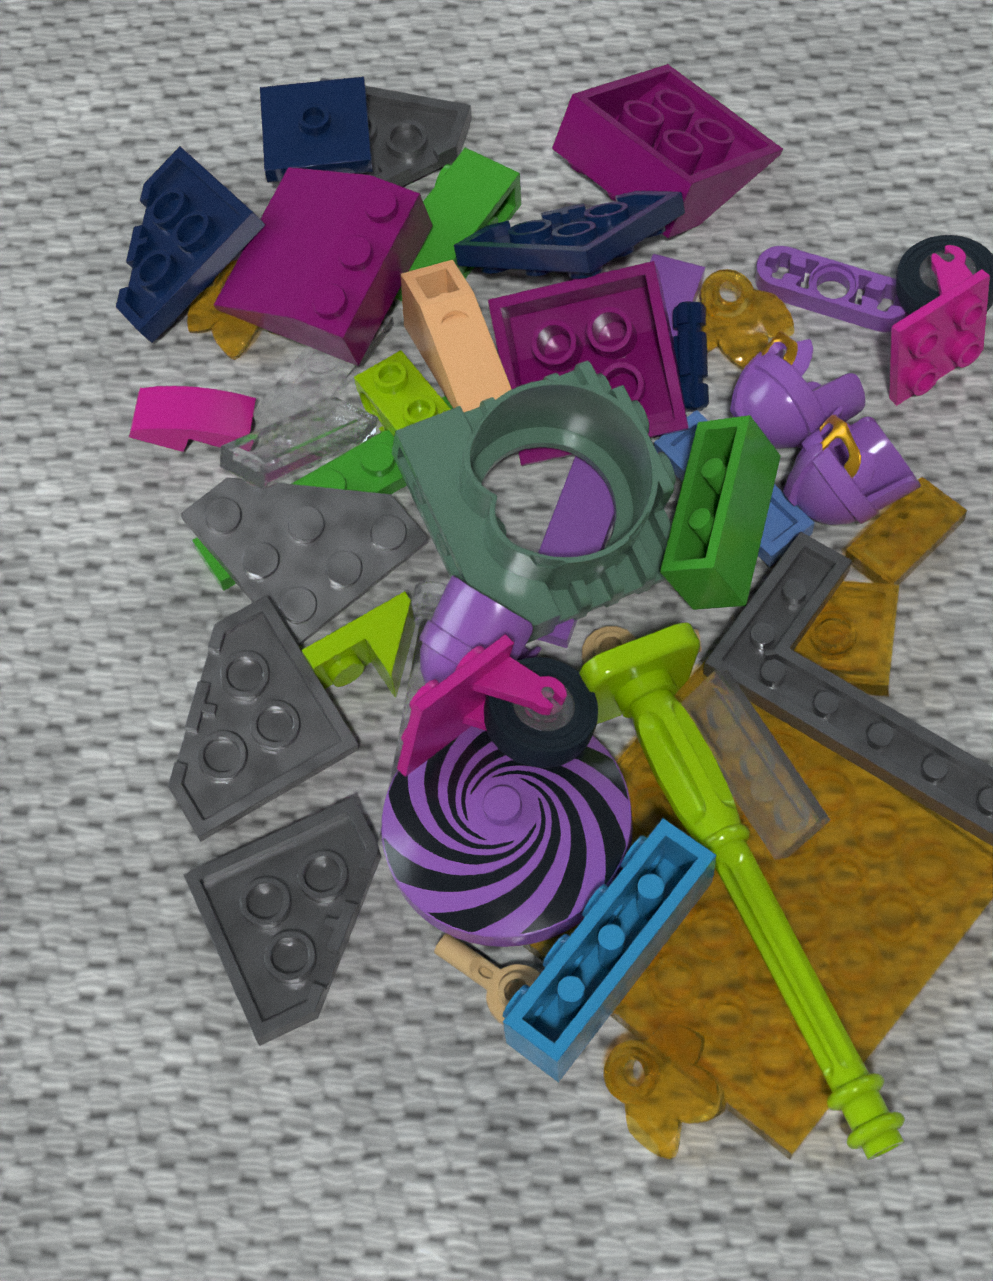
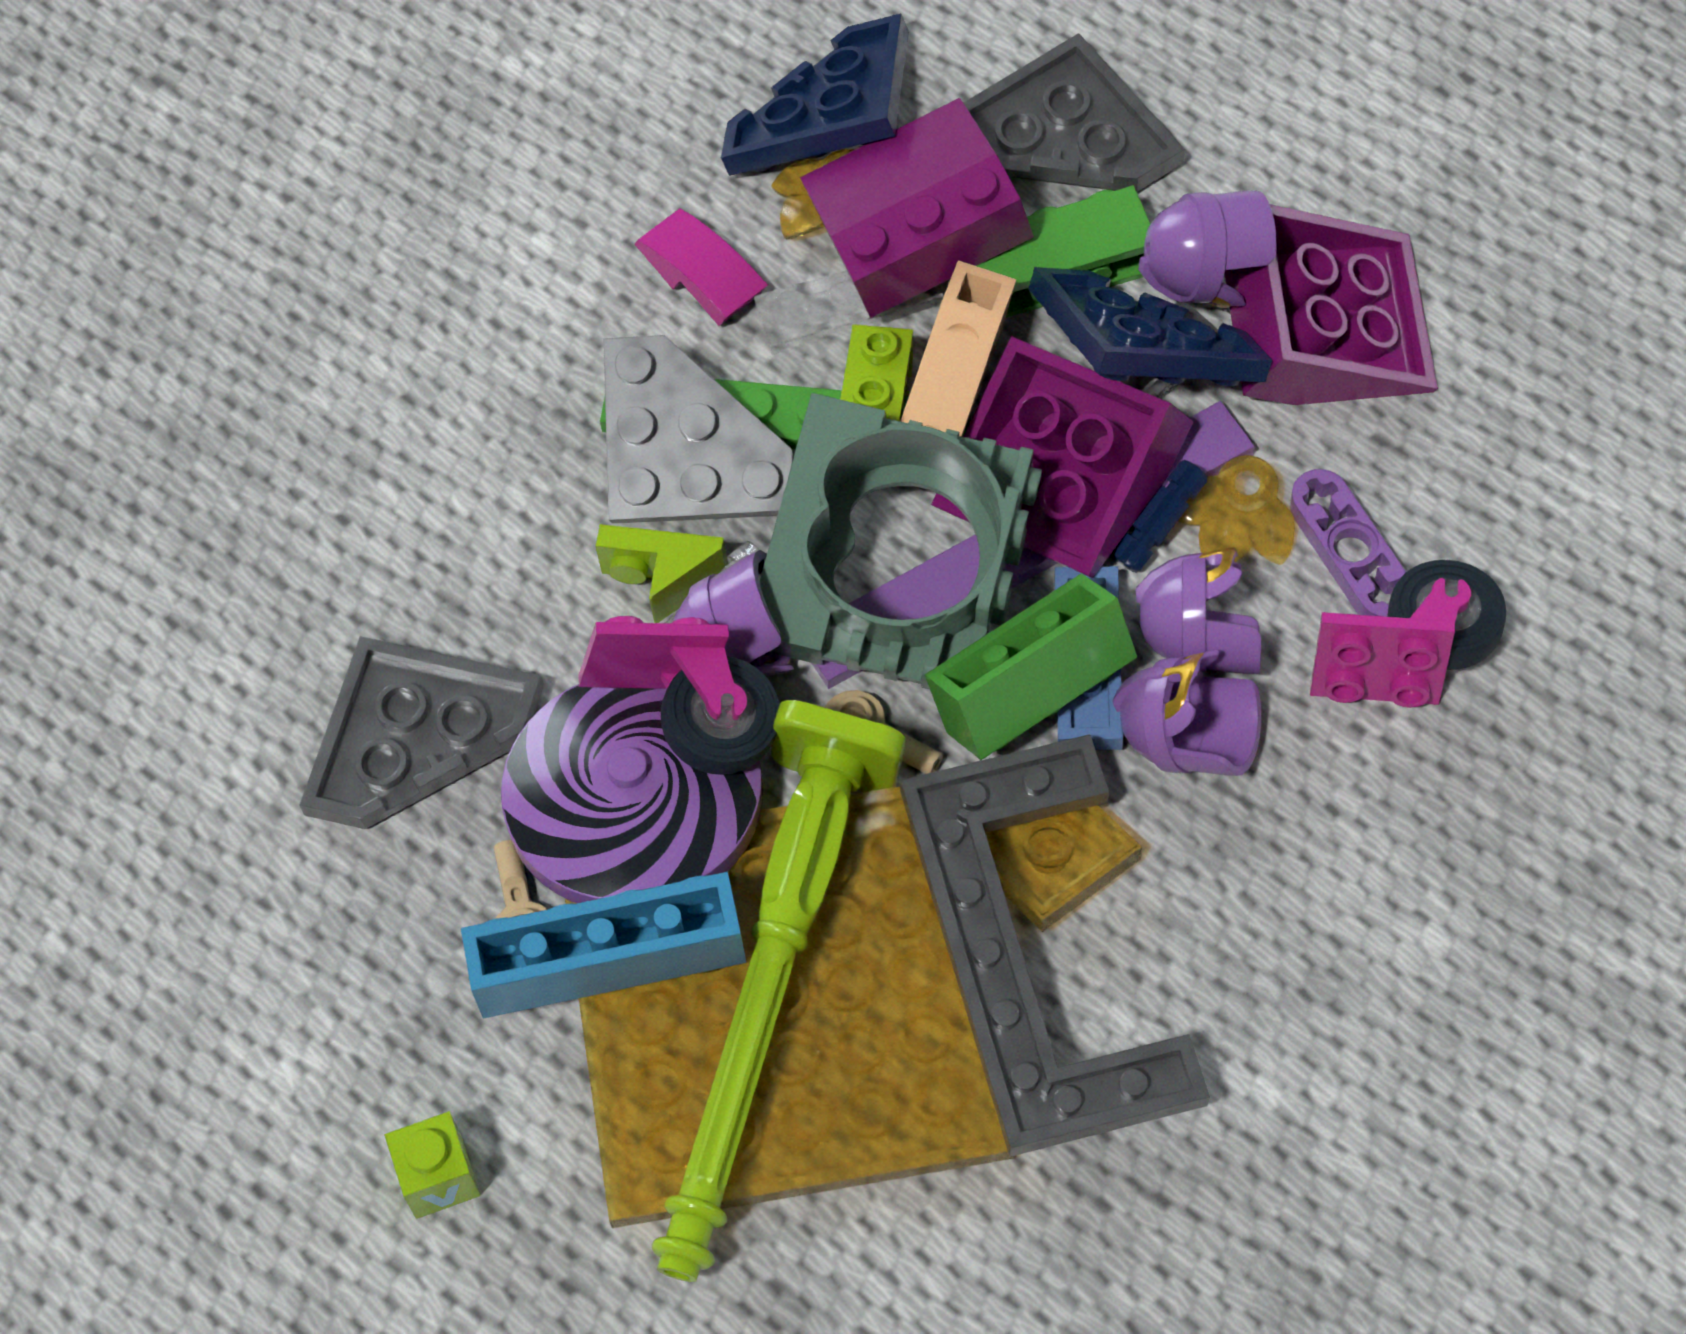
camera: 40 degrees right, 0 degrees up
(253, 723) = (519, 557): flat silver plate -> none
(297, 442) = (754, 347): clear plate -> none
(316, 127) = (1025, 78): dark blue plate -> none
(560, 145) = (1202, 238): none -> medium lavender helmet
(622, 1225) = (432, 1165): none -> lime brick
(672, 1089) = (562, 1089): clear yellow plate -> none
(755, 766) = (861, 894): clear plate -> none
(906, 534) = (1196, 810): clear yellow plate -> none

